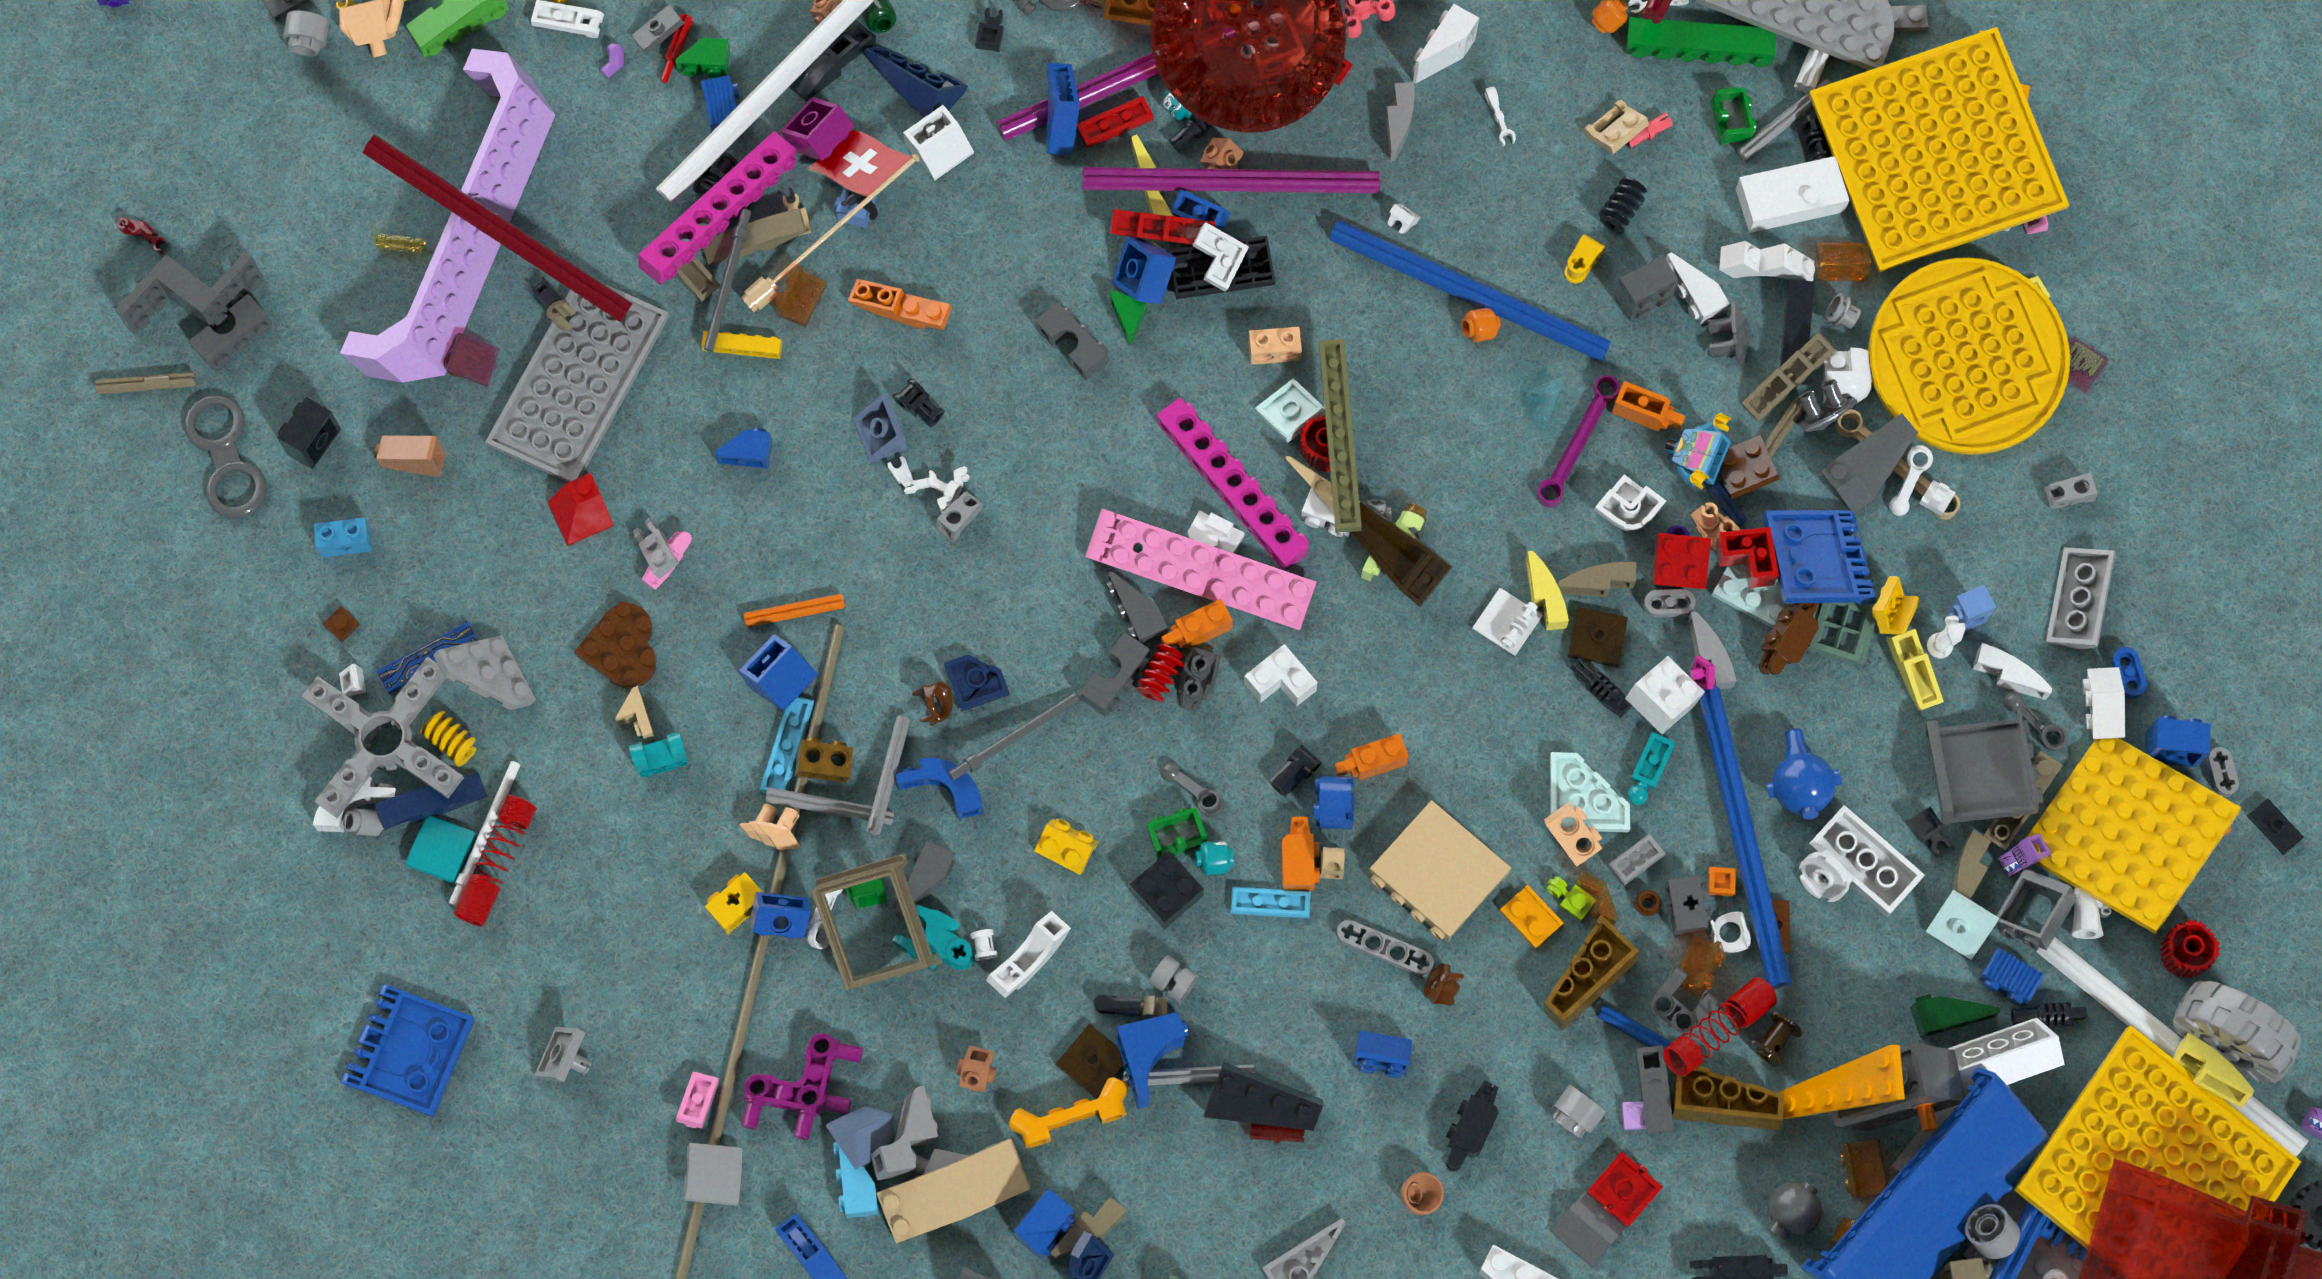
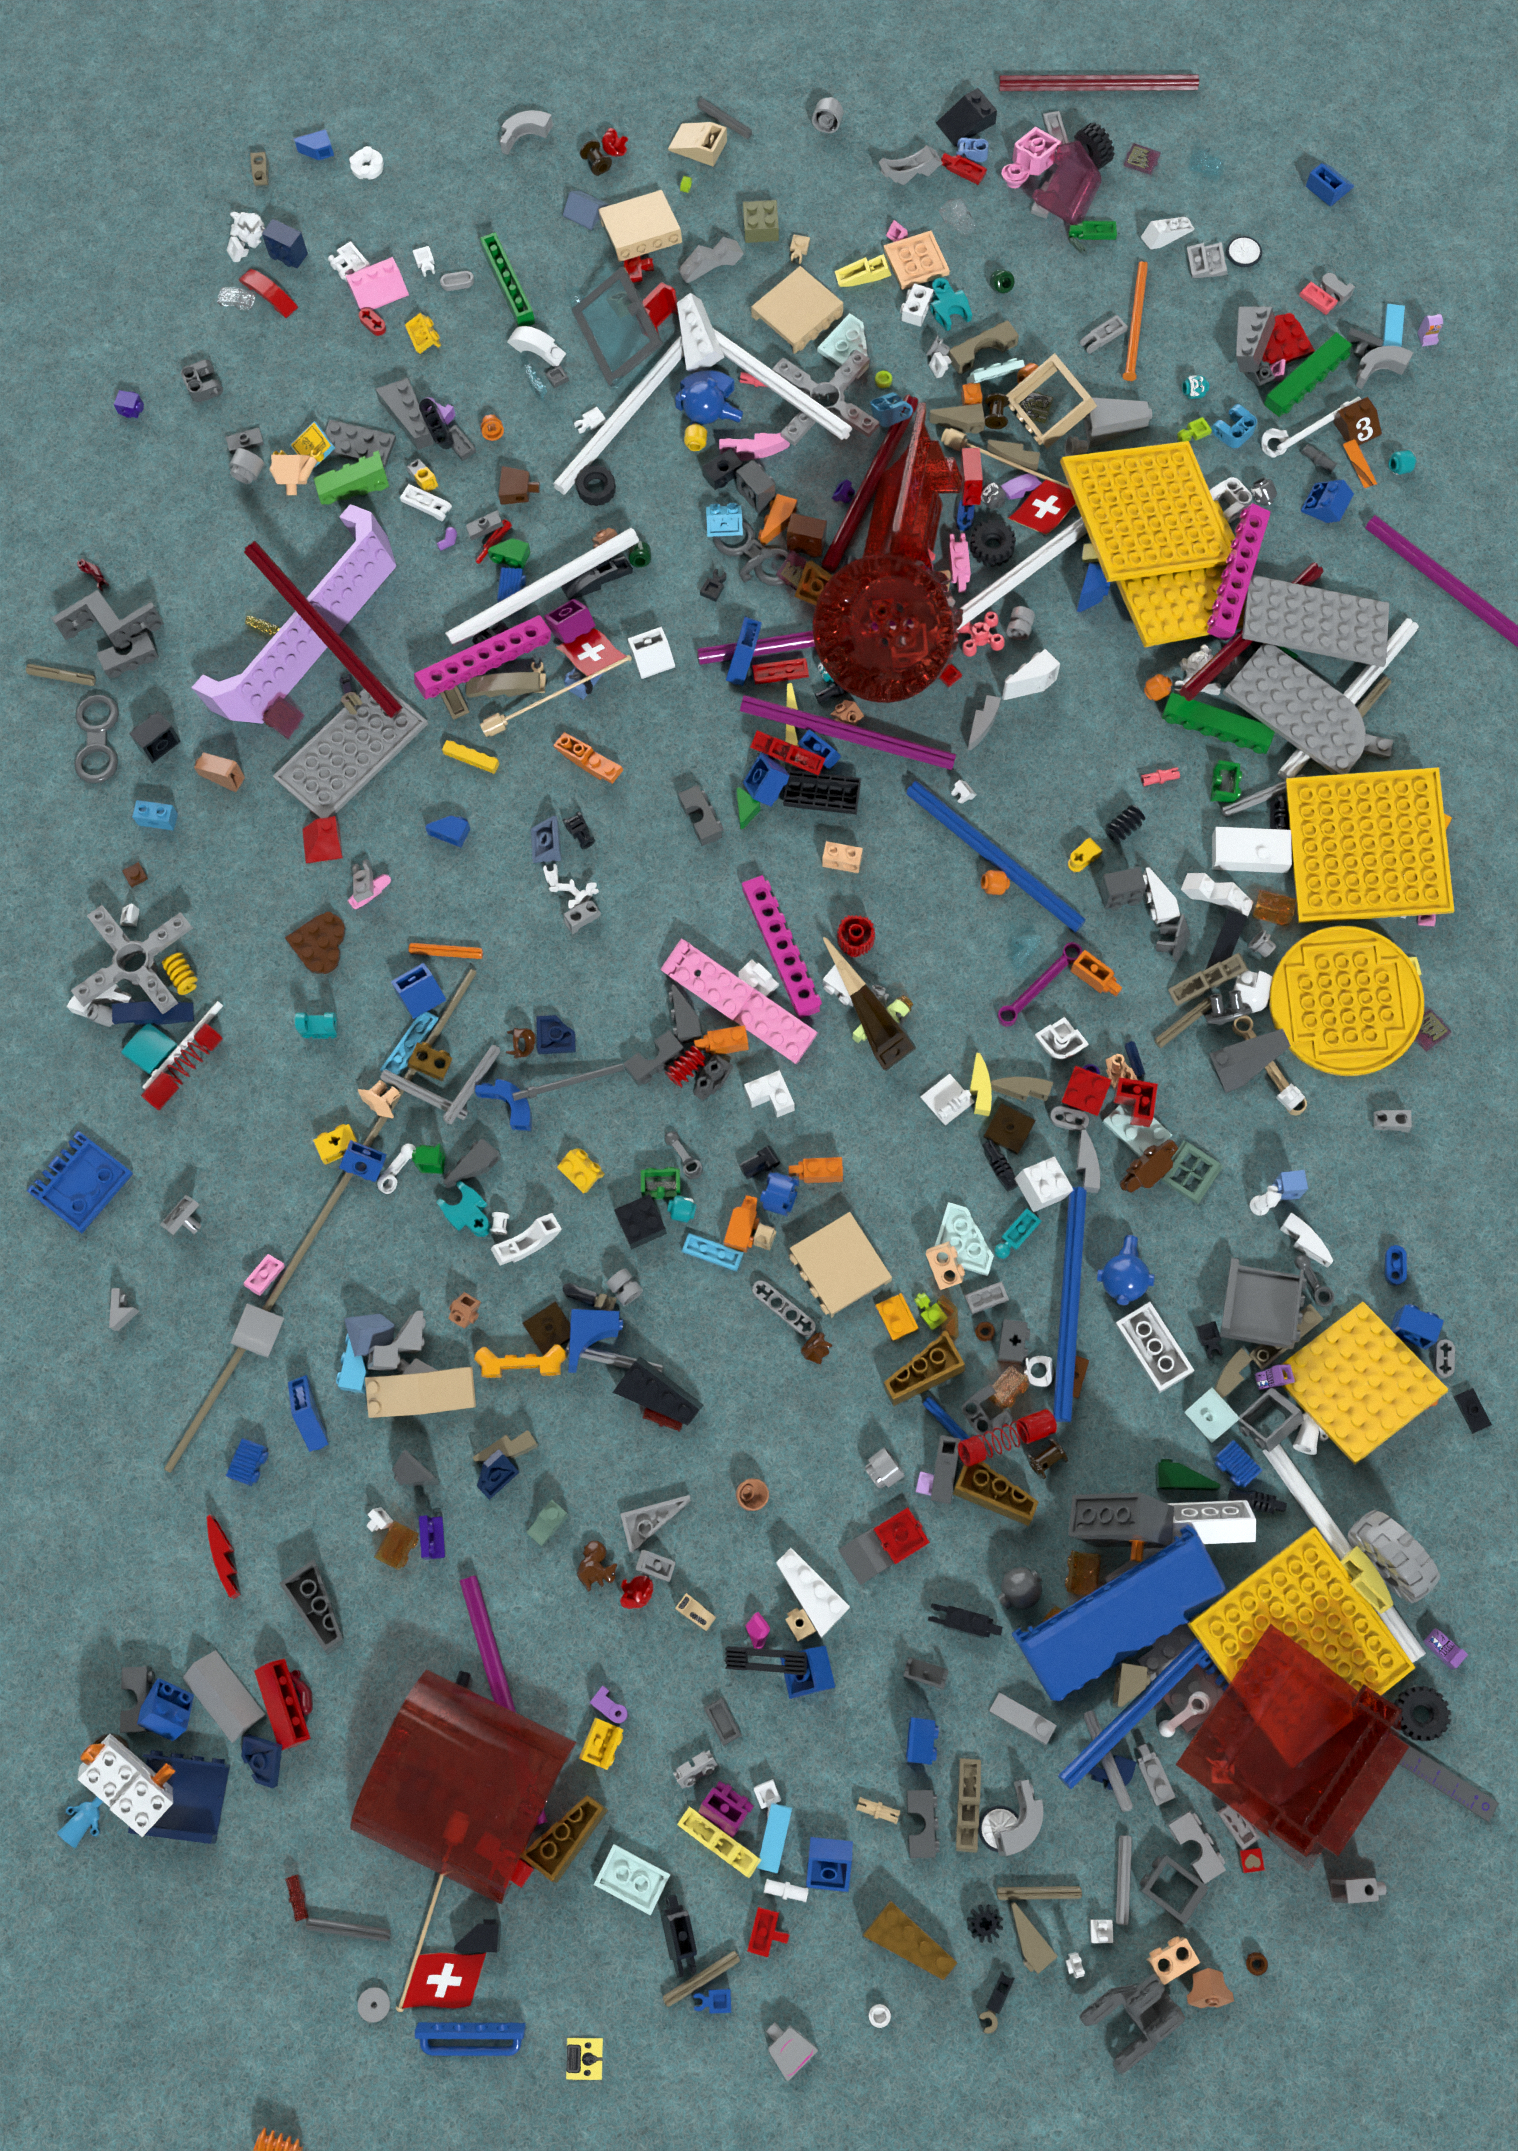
camera: 20 degrees right, 0 degrees up
(397, 673) = (192, 912): blue tile -> none
(487, 670) = (219, 933): light grey plate -> none
(522, 1207) = (118, 1314): none -> light grey slope
(633, 710) = (313, 989): tan slope -> none
(739, 236) = (491, 680): dark grey bar -> none
(790, 1095) = (330, 1291): magenta pin -> none
(800, 296) = (521, 734): clear orange bracket -> none
(891, 866) = (416, 1148): dark tan piece -> none
(914, 83) = (650, 608): dark blue wedge -> none
(1045, 1224) = (475, 1435): blue slope -> none
(1226, 253) = (826, 781): white plate -> none
(1289, 410) = (838, 904): light aqua plate -> none
(1339, 436) = (865, 933): olive plate -> none
(1382, 1054) = (756, 1384): blue slope -> none
(1473, 1127) = (805, 1457): black hinge -> none
(1492, 100) = (1054, 727): white piece -> none
(1619, 131) = (1140, 771): tan plate -> none
(1700, 451) = (1125, 1016): torso -> none
(1703, 673) = (1076, 1176): dark pink piece -> none
(1721, 881) = (1044, 1331): orange plate -> none
(1747, 467) = (1156, 1036): plate -> none
(1818, 558) = (1188, 1116): blue hinge -> none
(1836, 879) = (1120, 1340): white plate -> none
(1858, 1083) = (1091, 1510): light orange wing -> none
(1893, 608) = (1233, 1169): yellow bracket -> none
(1899, 504) = (1261, 1095): white piece -> none
(1915, 669) = (1235, 1217): light yellow slope -> none
(1992, 1231) = (1161, 1650): light grey piece -> none
(2080, 598) = (1376, 1200): light grey slope -> none
(2107, 703) = (1370, 1279): white brick -> none
(2178, 958) = (1370, 1491): red brick -> none

